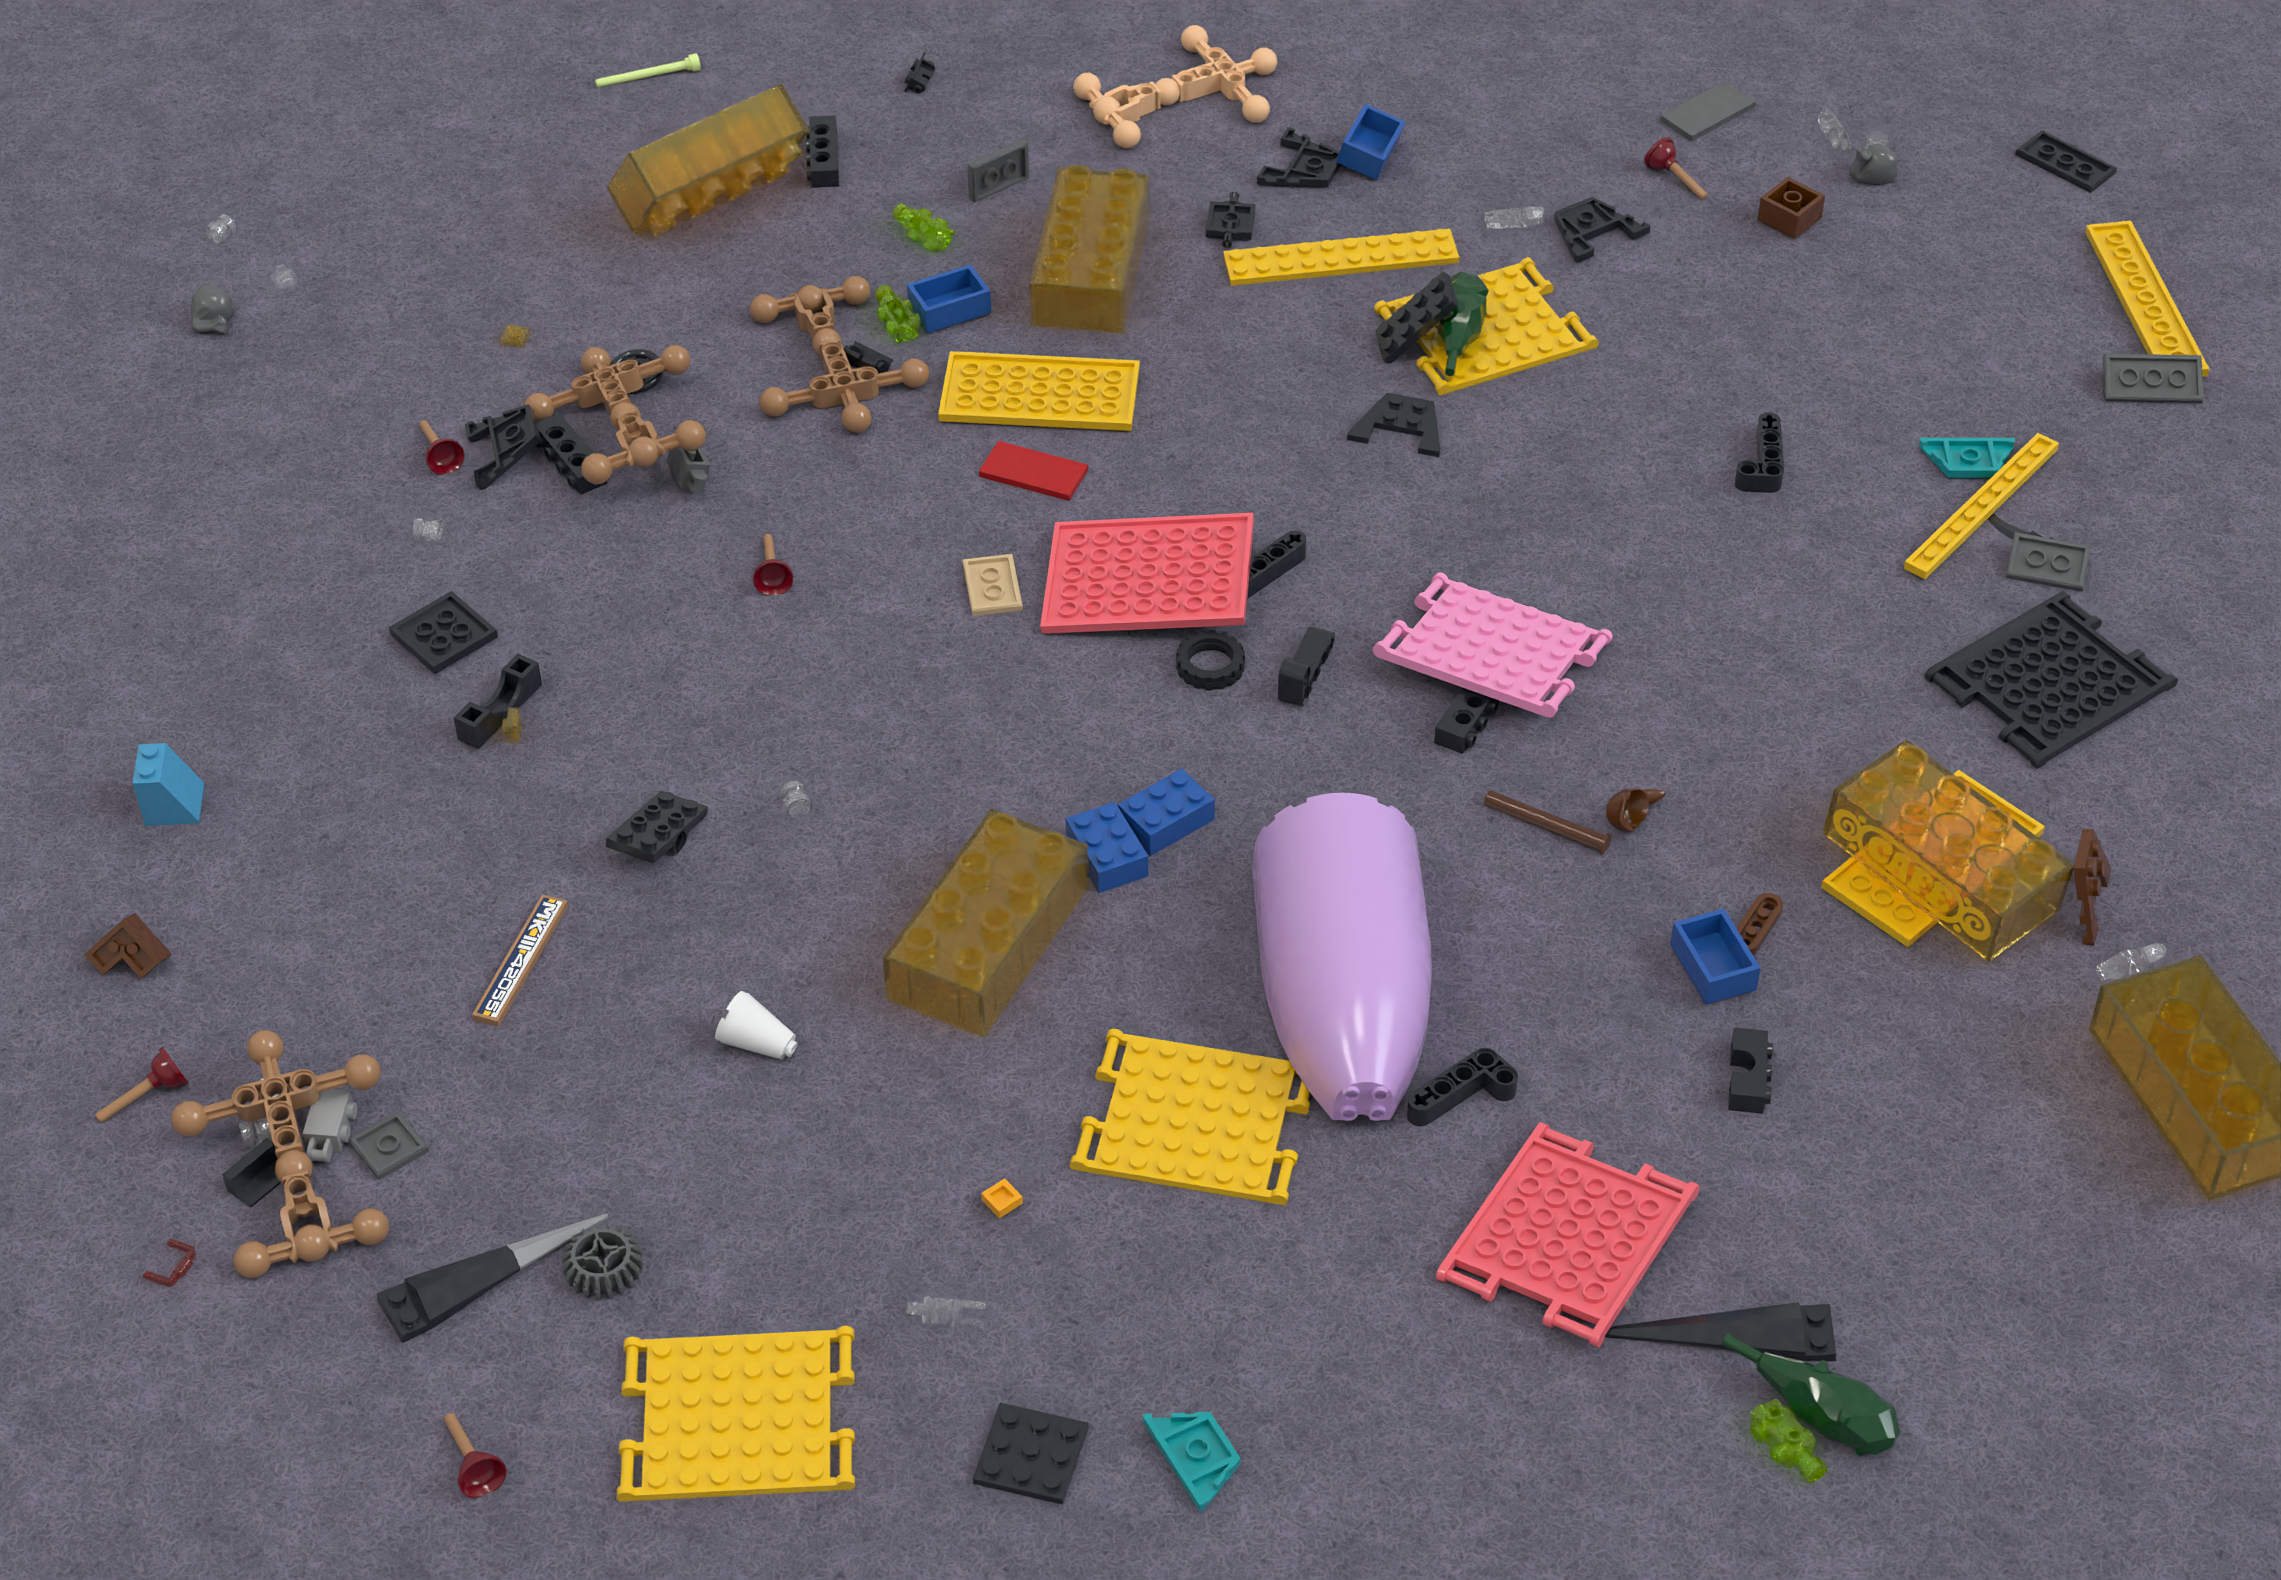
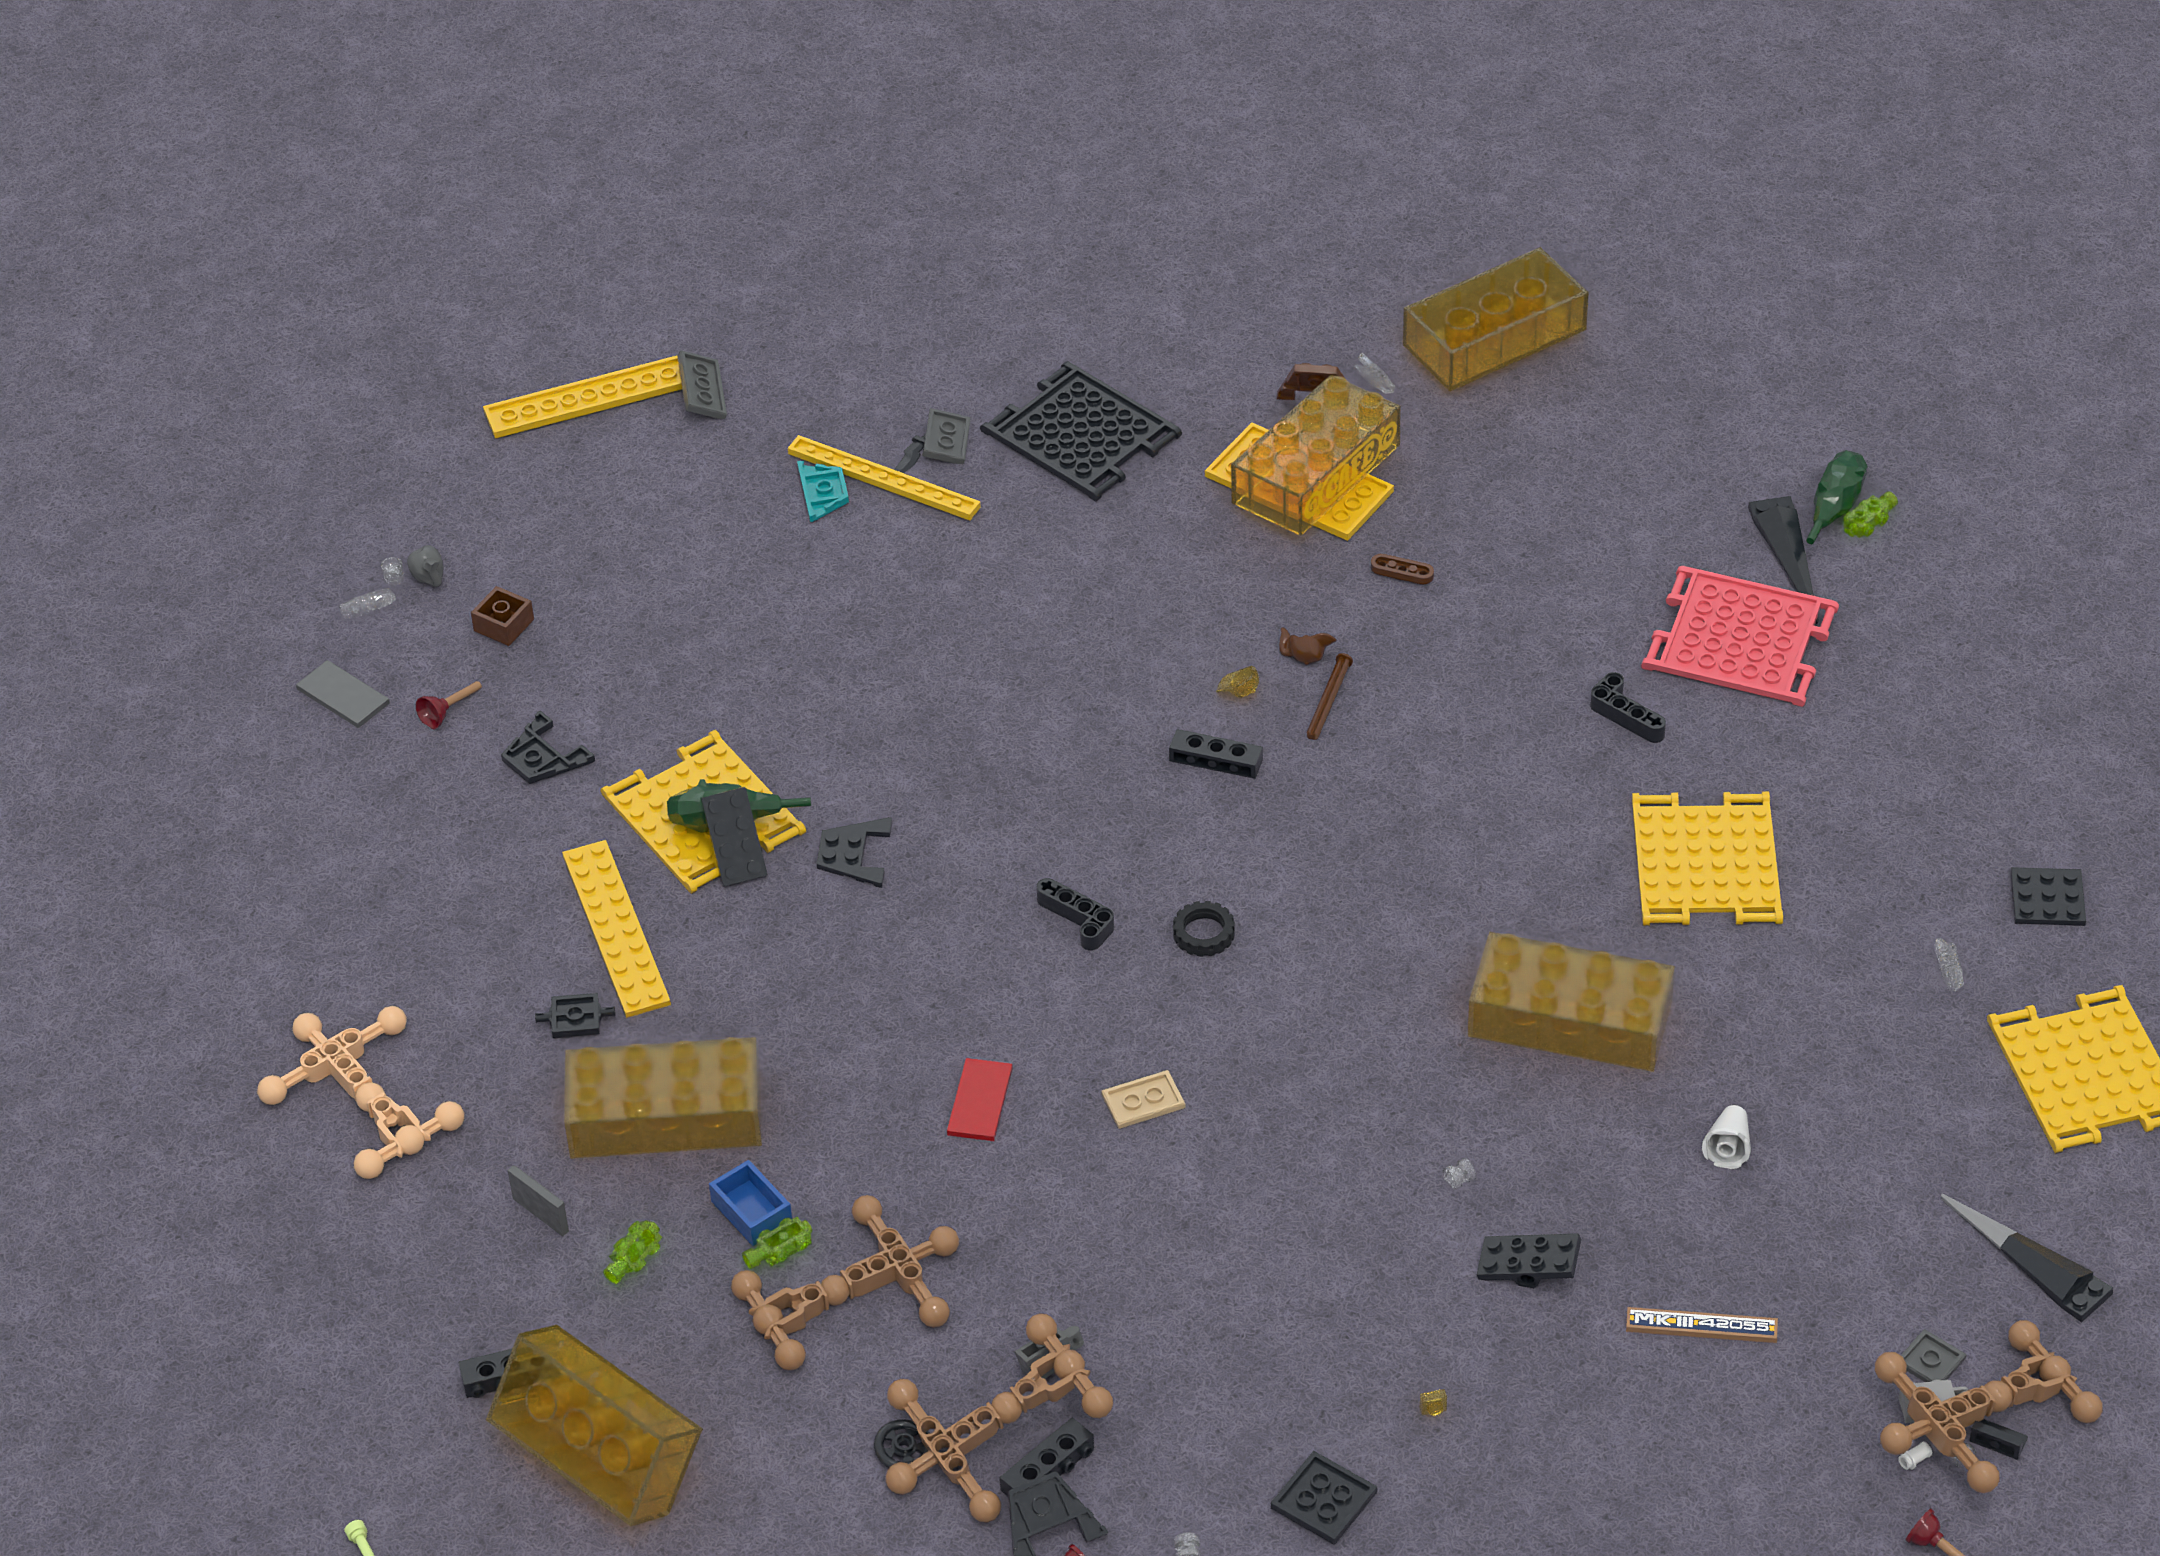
camera: 100 degrees left, 0 degrees up
(180, 1270) = (2106, 1462): clear red piece -> none
(517, 683) = (1384, 1412): black arch -> none
(583, 1263) = (1990, 1185): dark grey gear -> none
(772, 575) = (1181, 1253): dark red piece -> none
(863, 356) = (850, 1251): black hinge -> none
(922, 73) = (356, 1319): black hinge -> none
(1002, 1198) = (1831, 953): light orange plate -> none
(1039, 391) = (867, 1114): yellow plate -> none
(1113, 848) = (1448, 953): blue piece -> none
(1148, 573) = (1114, 980): coral plate -> none
(1168, 811) = (1398, 922): blue piece -> none
(1195, 1451) = (2010, 806): teal wing -> none
(1298, 674) = (1197, 863): black beam -> none
(1311, 166) = (471, 966): black wing -> none
(1345, 949) = (1537, 774): lavender panel -> none
(1370, 142) = (446, 917): blue piece -> none
(1493, 646) = (1143, 745): bright pink plate -> none
(1514, 217) = (539, 807): clear hinge -> none
(1578, 744) = (1240, 682): none -> clear yellow piece
(1715, 956) = (1451, 581): blue piece -> none
(1748, 1089) = (1567, 554): black arch -> none
(1768, 471) = (852, 605): black beam -> none
(2066, 161) = (390, 454): black tile -> none

